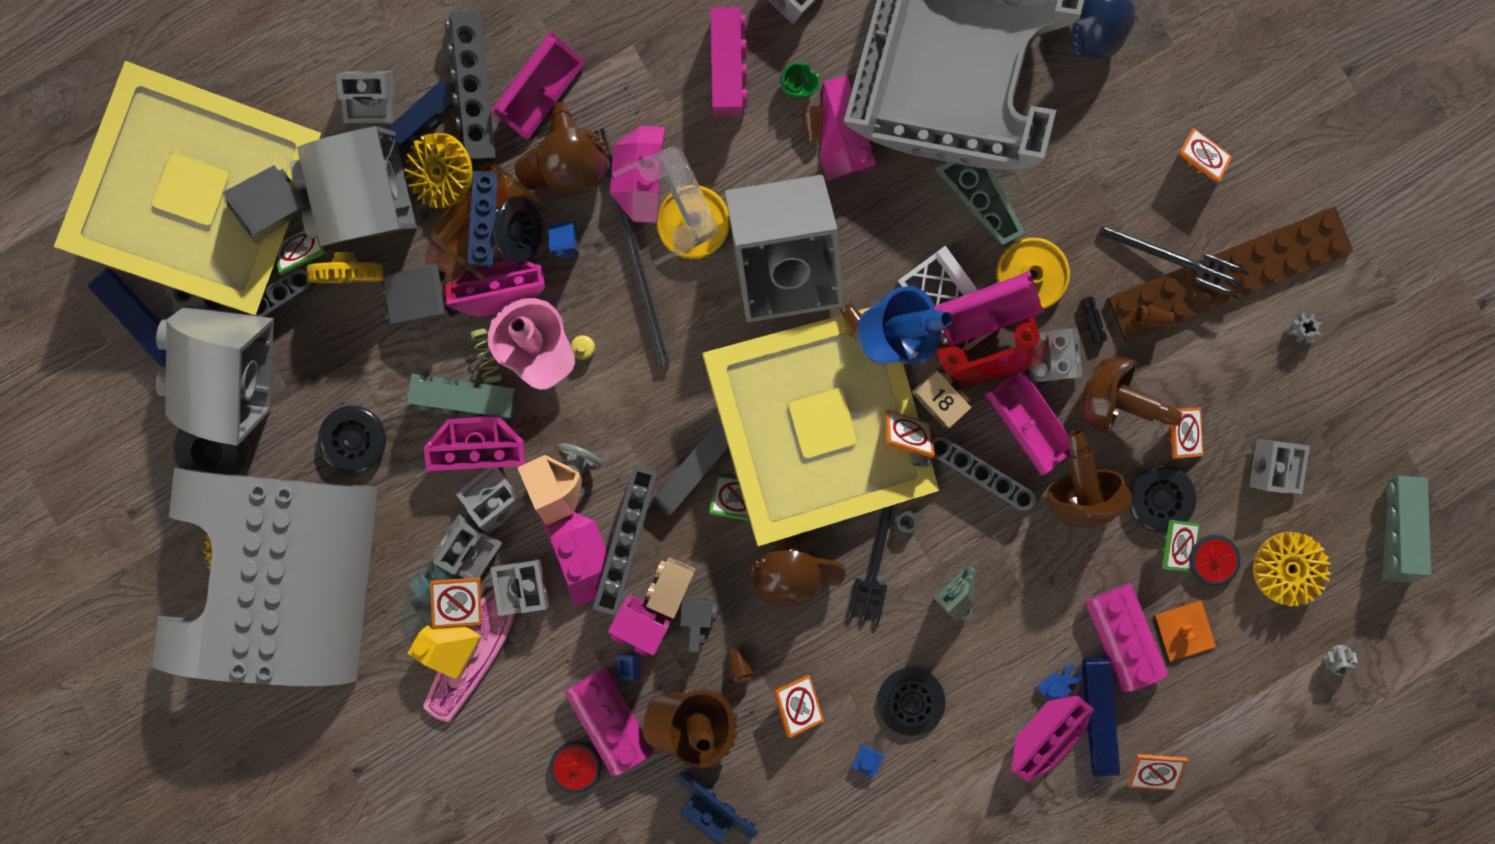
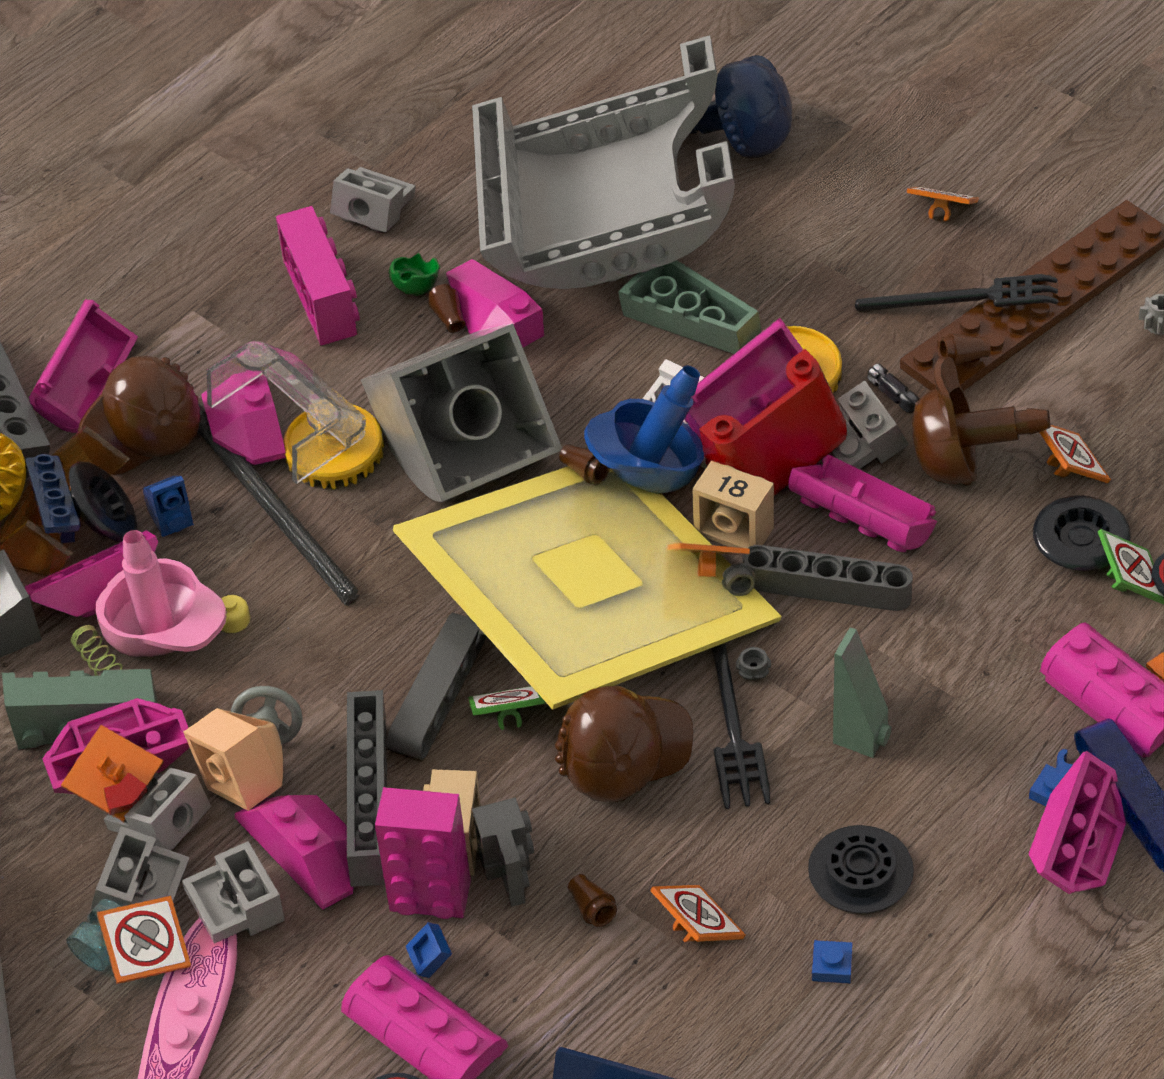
camera: 15 degrees left, 40 degrees down
(445, 648) = (143, 1009): yellow slope -> none
(466, 473) = (105, 764): none -> orange piece
(469, 495) = (125, 794): none -> red piece
(691, 726) = (550, 974): reddish brown piece -> none
(1088, 494) = (981, 543): reddish brown piece -> none

